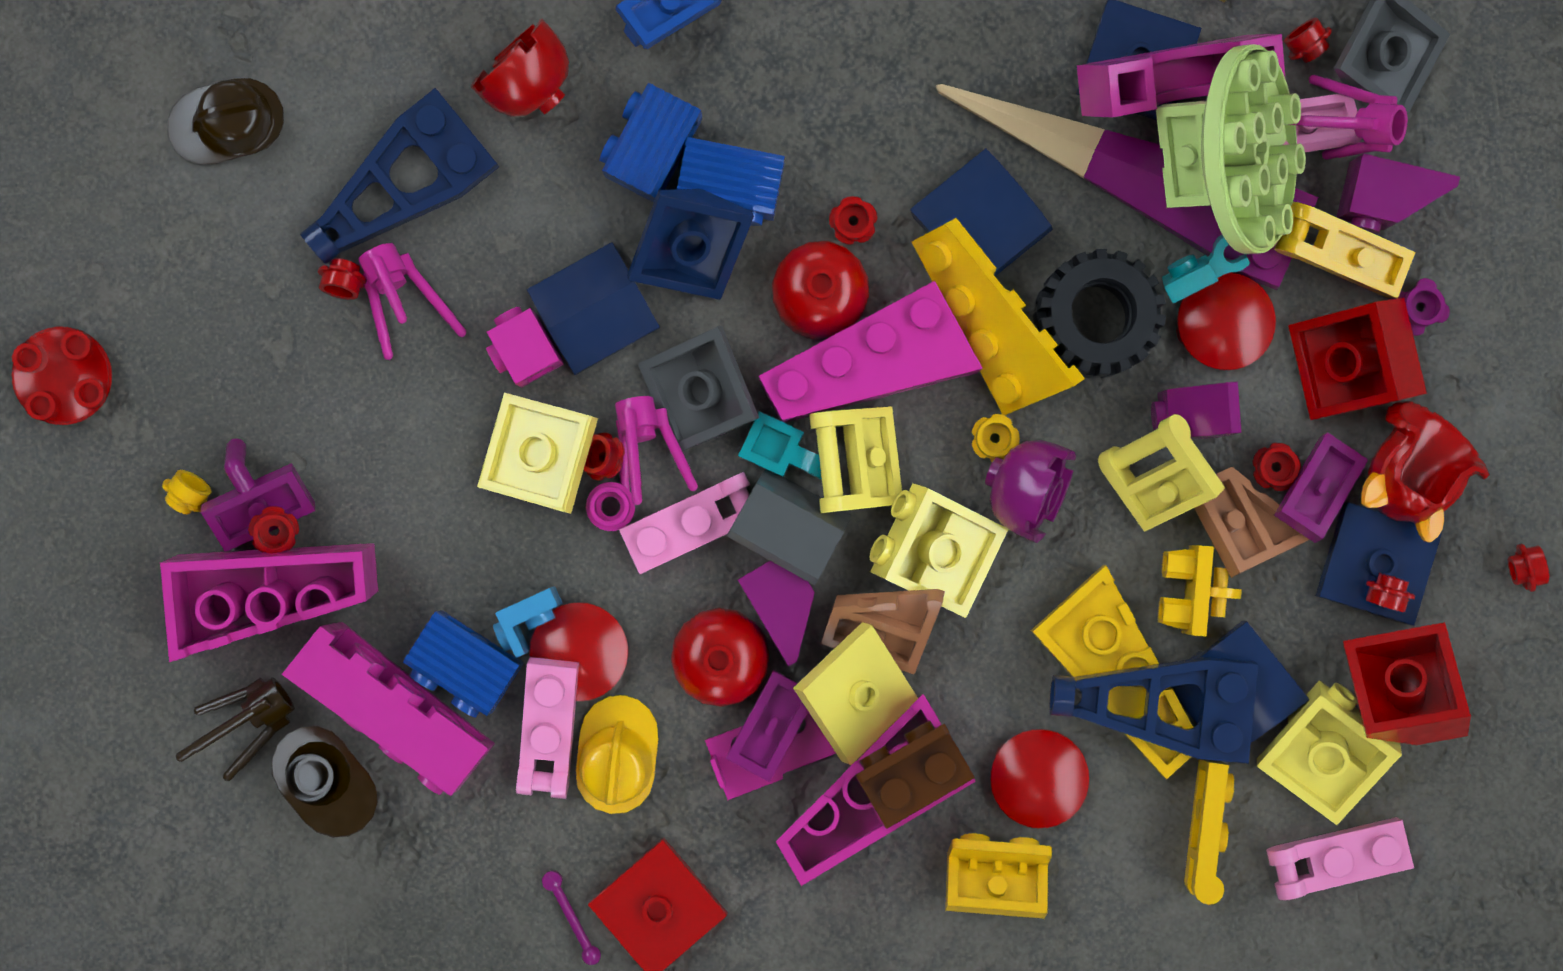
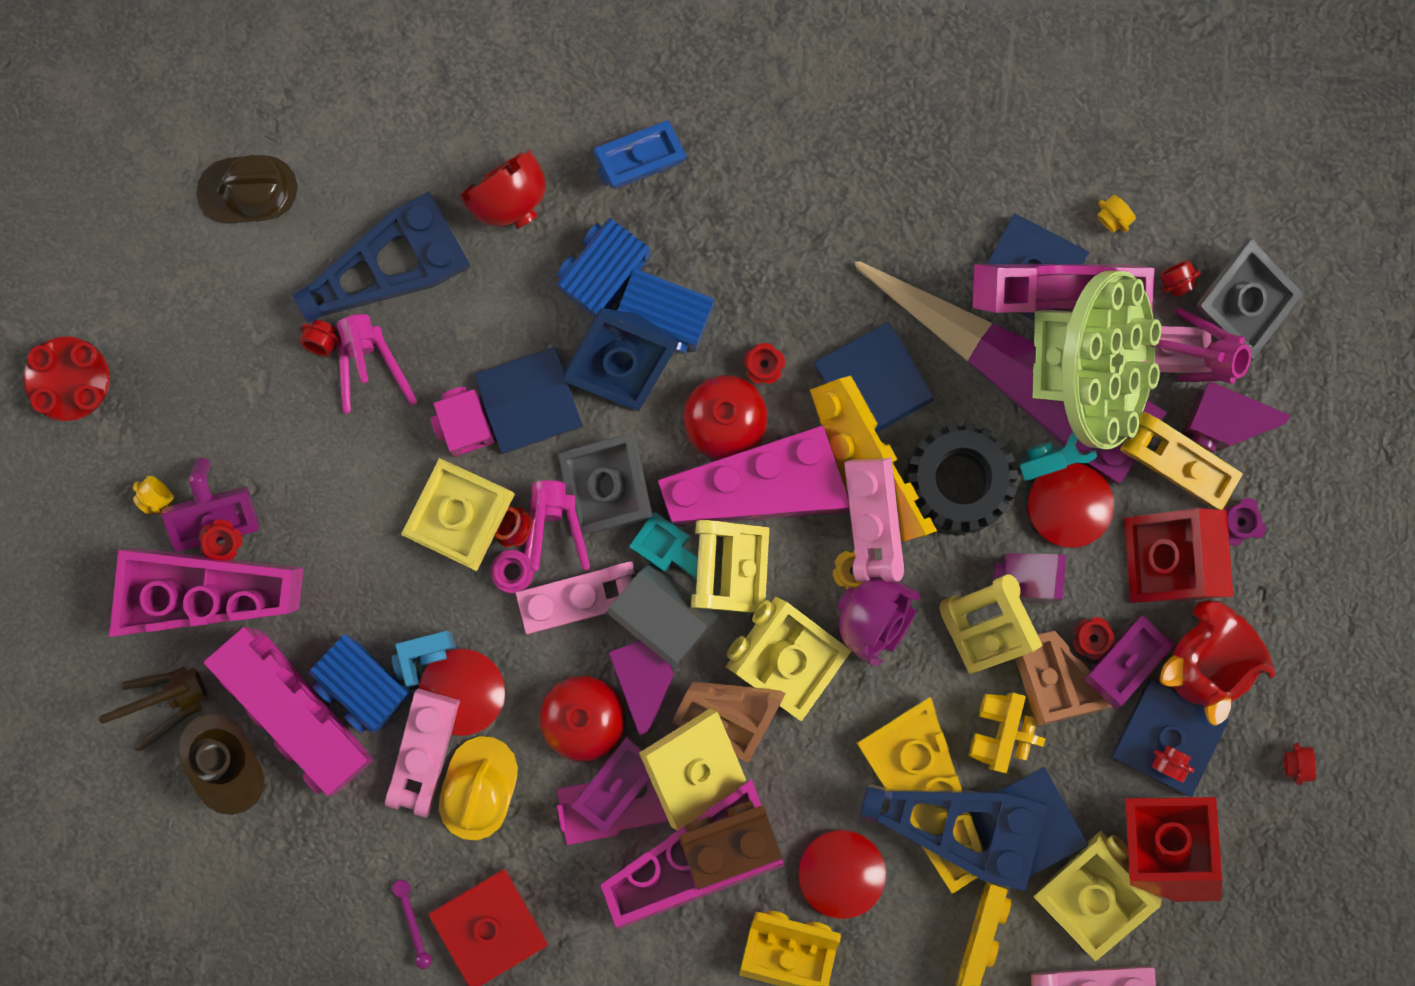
camera: 15 degrees right, 5 degrees down
(1011, 377) = (874, 519): none -> bright pink plate

